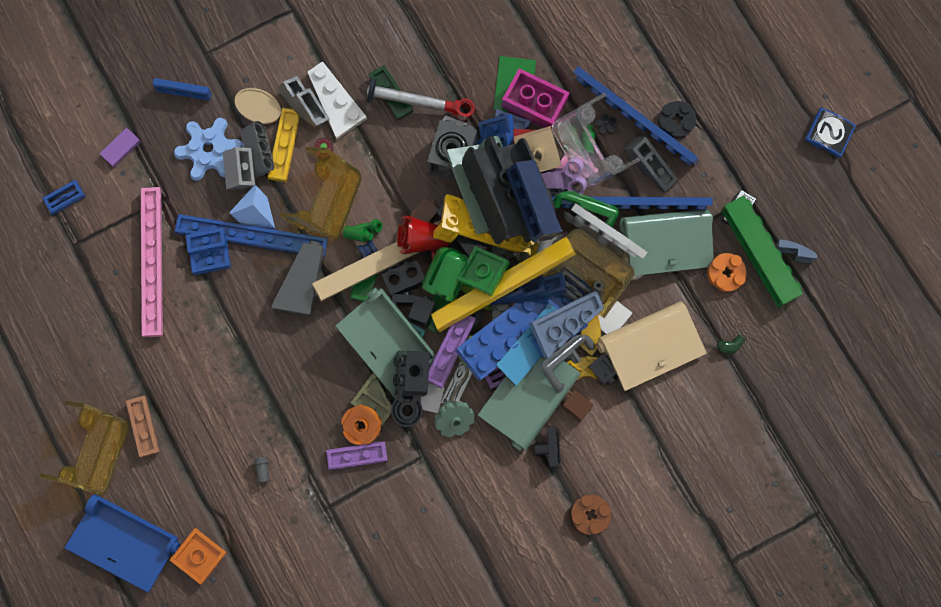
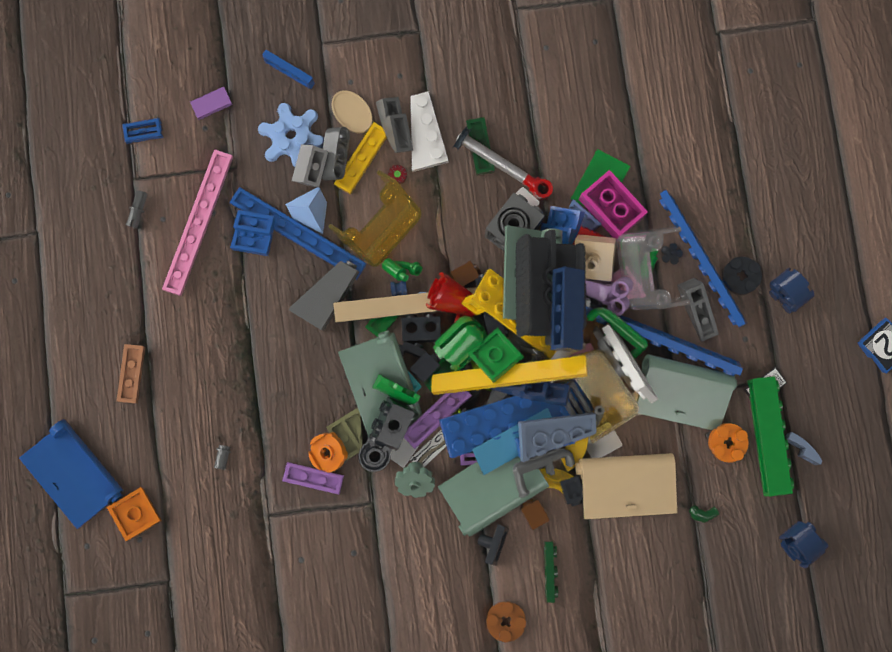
camera: 25 degrees right, 5 degrees up
(87, 271) = (136, 209): none -> dark grey axle
(99, 451) = (80, 384): clear yellow windscreen -> none
(403, 341) = (395, 390): none -> green slope
(613, 452) = (551, 572): none -> dark green plate
(726, 114) = (791, 290): none -> dark blue brick
(830, 334) = (803, 543): none -> dark blue brick

